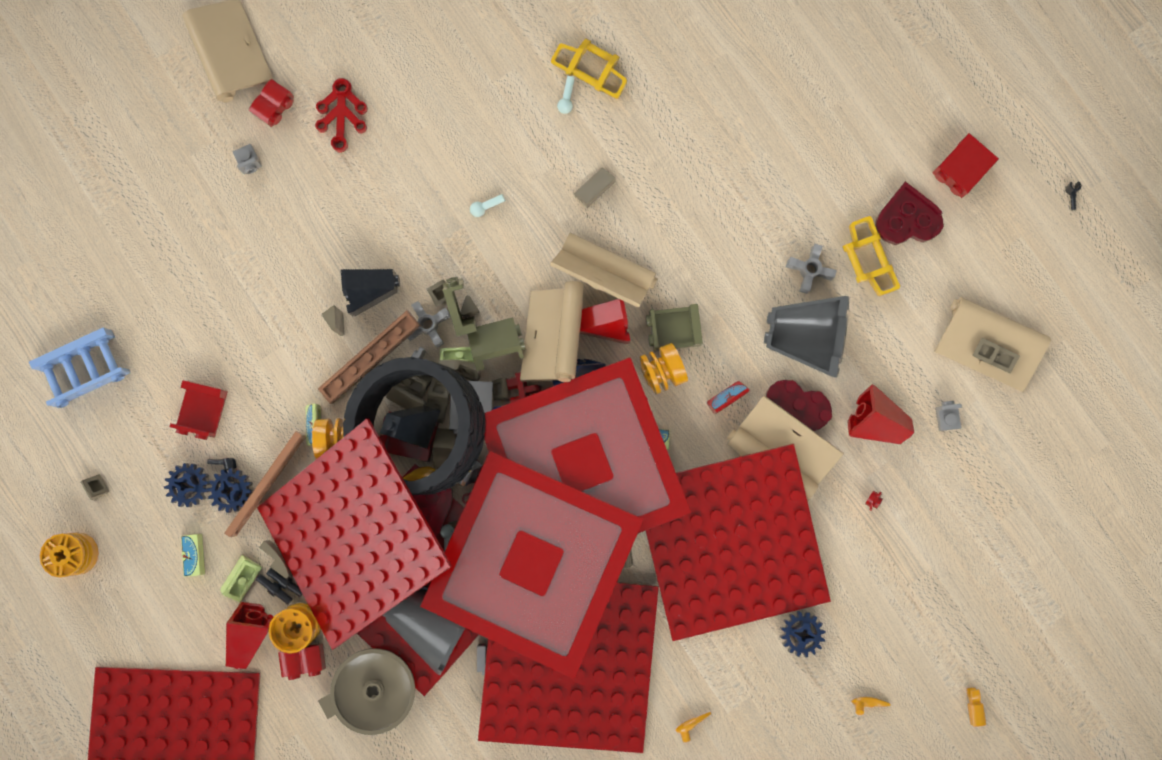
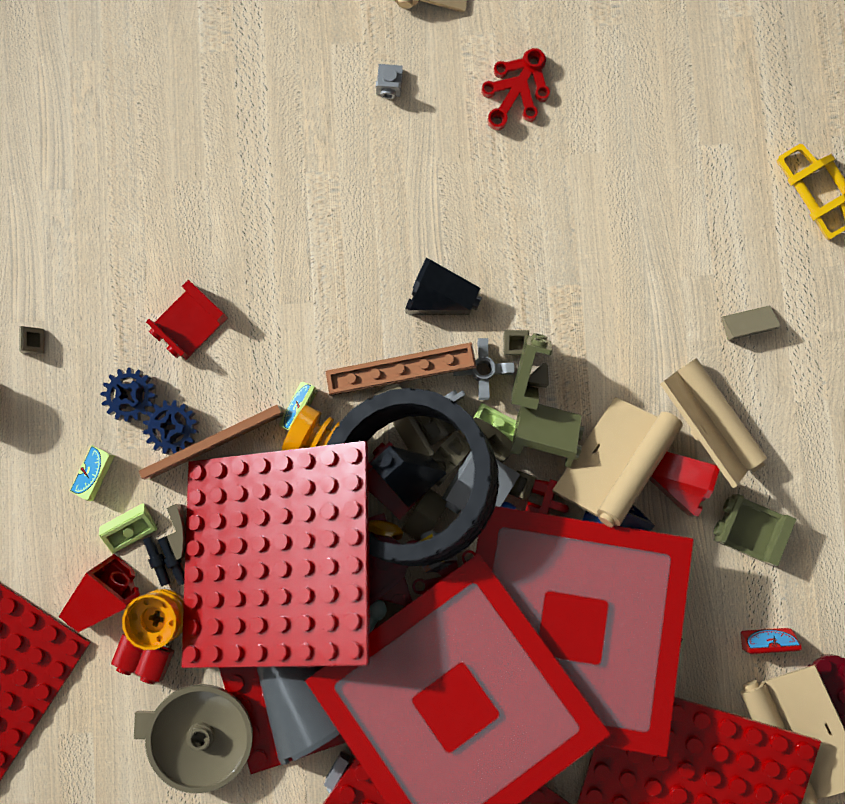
camera: 30 degrees right, 0 degrees up
(64, 356) = (79, 181): light blue fence -> none
(227, 462) = (185, 396): black hand -> none
(271, 103) = (449, 35): red brick -> none
(334, 319) = (387, 305): dark tan slope -> none
(478, 209) = (607, 274): light aqua bar -> none
(565, 104) = (767, 213): light aqua bar -> none
(663, 368) = (719, 569): light orange wheel -> none

